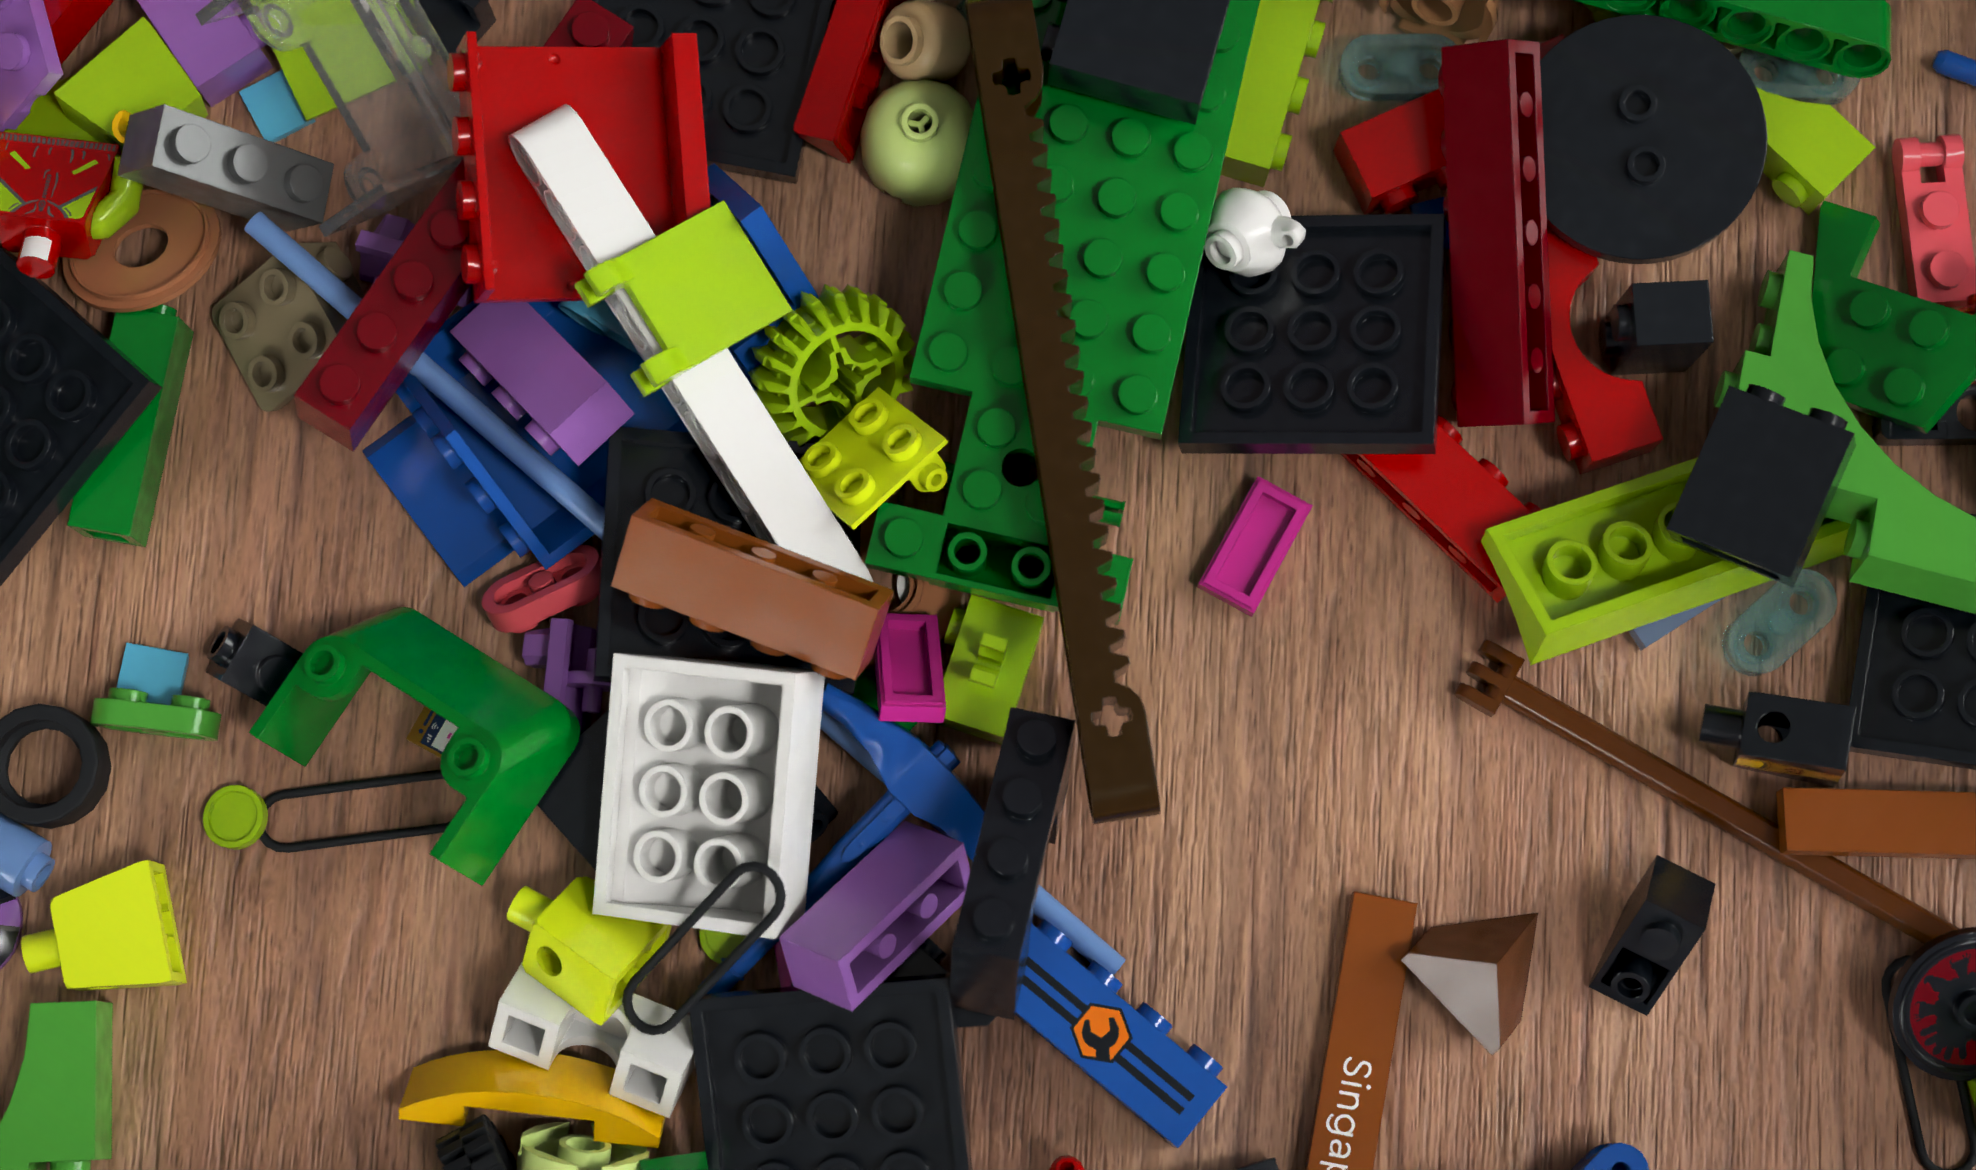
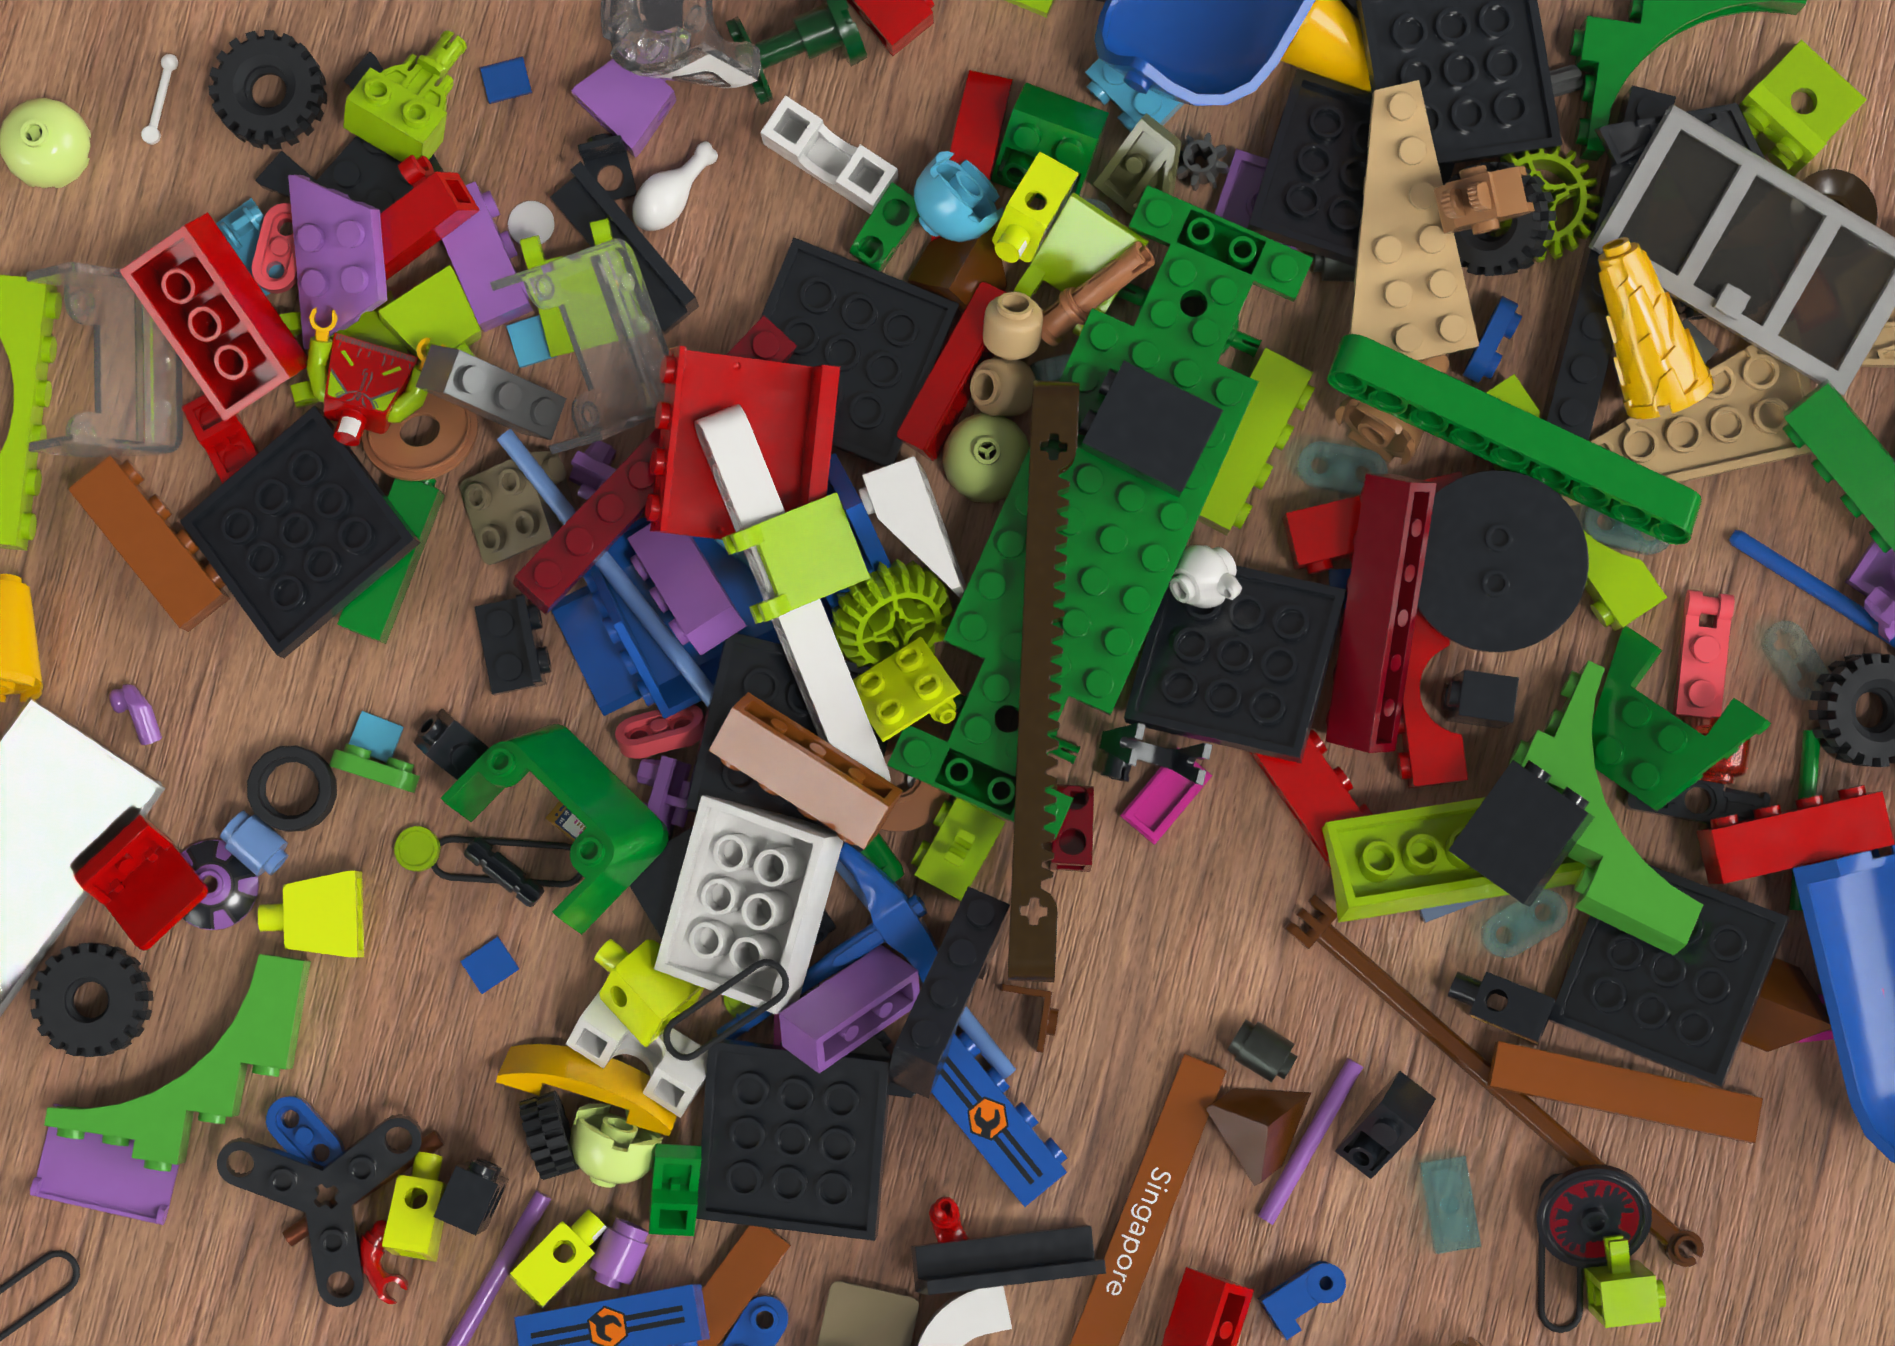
camera: 15 degrees right, 5 degrees up
(319, 513) = (512, 645): none -> black bracket
(361, 824) = (504, 872): none -> black axle
(365, 959) = (490, 965): none -> blue piece
(831, 218) = (908, 508): none -> white slope
(909, 670) = (904, 841): dark pink tile -> none
(1145, 618) = (1075, 838): none -> dark red leg
(1155, 874) = (1048, 1015): none -> reddish brown bracket
(1187, 490) = (1125, 750): none -> black piece
(1462, 866) = (1263, 1050): none -> pearl dark grey brick
(1552, 980) = (1310, 1141): none -> medium lavender bar
(1763, 1029) = (1449, 1204): none -> clear light blue plate

